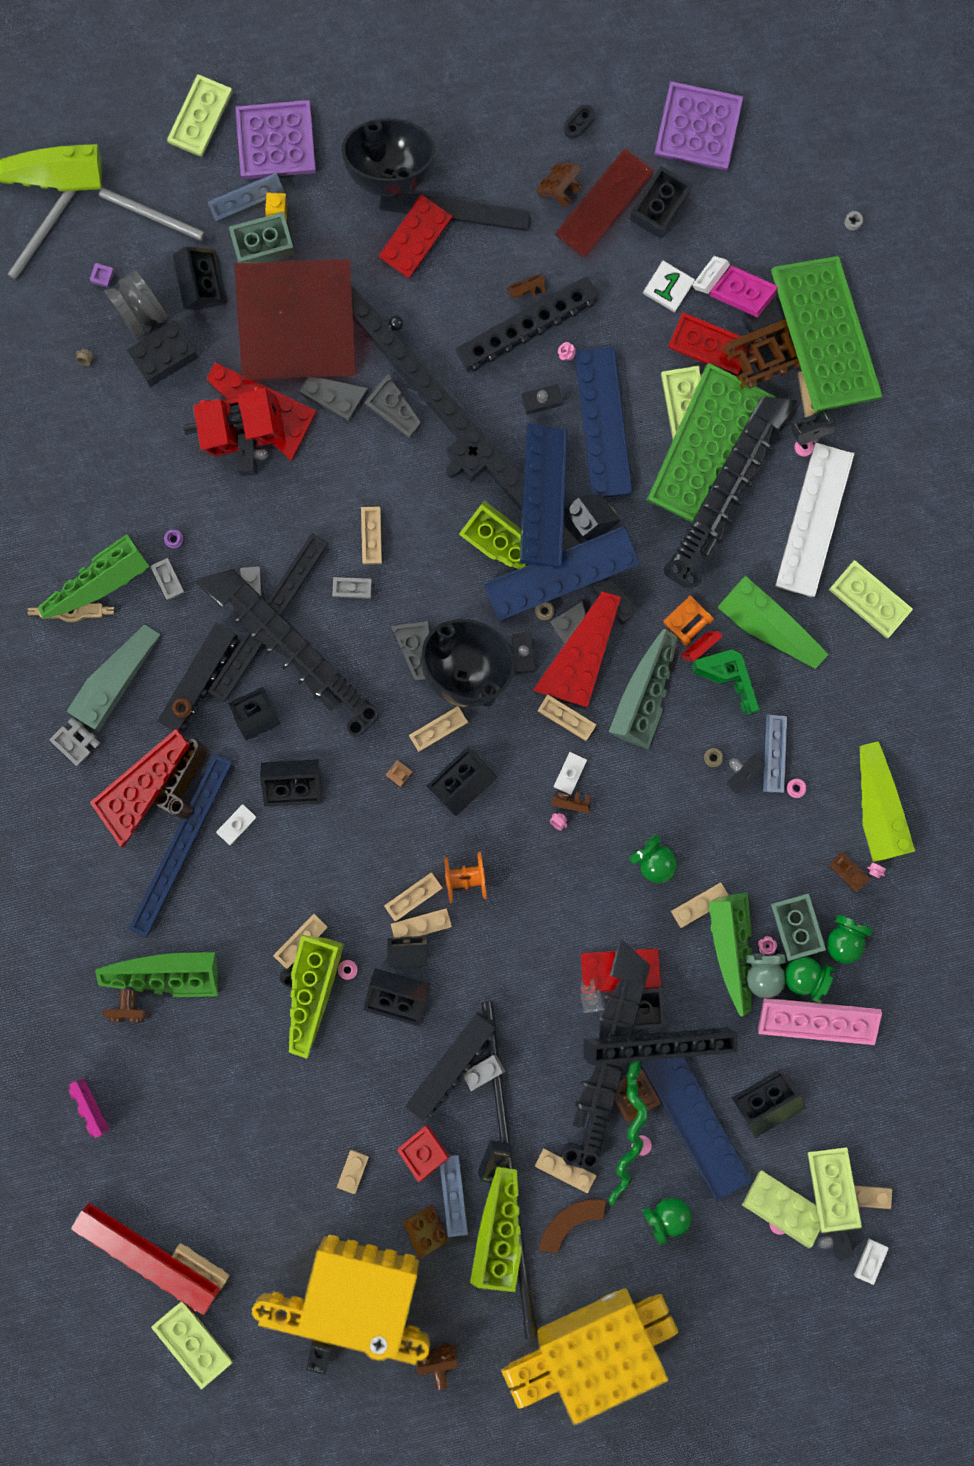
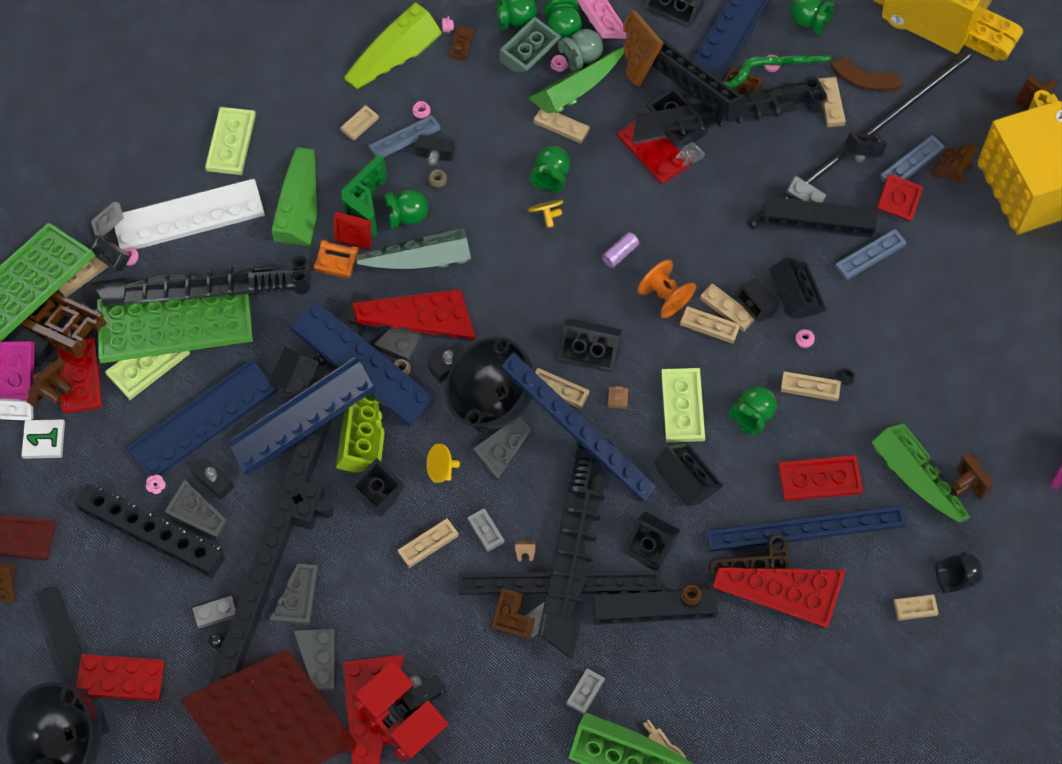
camera: 120 degrees left, 20 degrees down
(58, 885) = (915, 607): none -> tan plate
(59, 939) = (958, 573): none -> black helmet
(70, 745) = (792, 676): light grey plate -> none
(111, 679) = (715, 681): sand green wedge -> none
(167, 538) = (544, 706): medium lavender plate -> none
(215, 889) = (820, 478): none -> red plate
(236, 824) = (755, 497): white plate -> none
(266, 557) = (507, 615): none -> reddish brown plate
(308, 877) = (754, 409): none -> green tile
(311, 987) = (841, 351): lime wedge -> none
(315, 609) = (525, 547): none -> medium nougat tile
(352, 1171) = (953, 242): tan plate -> none
(355, 821) = (683, 405): none -> yellowish green plate
(379, 706) = (577, 426): none -> dark blue plate
(387, 1086) = (870, 254): none -> sand blue plate
(424, 338) = (214, 612): none -> light grey plate
(431, 585) = (440, 464): none -> yellow shield
(441, 518) = (377, 487): none -> black slope
(498, 1239) = (918, 112): lime wedge -> none
(518, 289) = (112, 552): reddish brown plate -> none
(521, 370) = (195, 511): none -> dark grey wing
(535, 869) = (620, 249): none -> lavender axle
(558, 821) = (569, 256): bright pink plate -> none
(564, 801) = (547, 251): reddish brown plate -> none
(566, 718) = (480, 299): tan plate -> none
(570, 773) = (524, 272): white plate -> none
(618, 830) = (548, 215): none -> yellow shield
(695, 708) = (407, 207): none -> green tile
(710, 301) = (46, 383): none -> reddish brown plate
(728, 1025) = (640, 48): none -> dark orange plate
(817, 724) = (359, 123): none -> tan plate
(850, 445) = (107, 219): none -> light grey plate

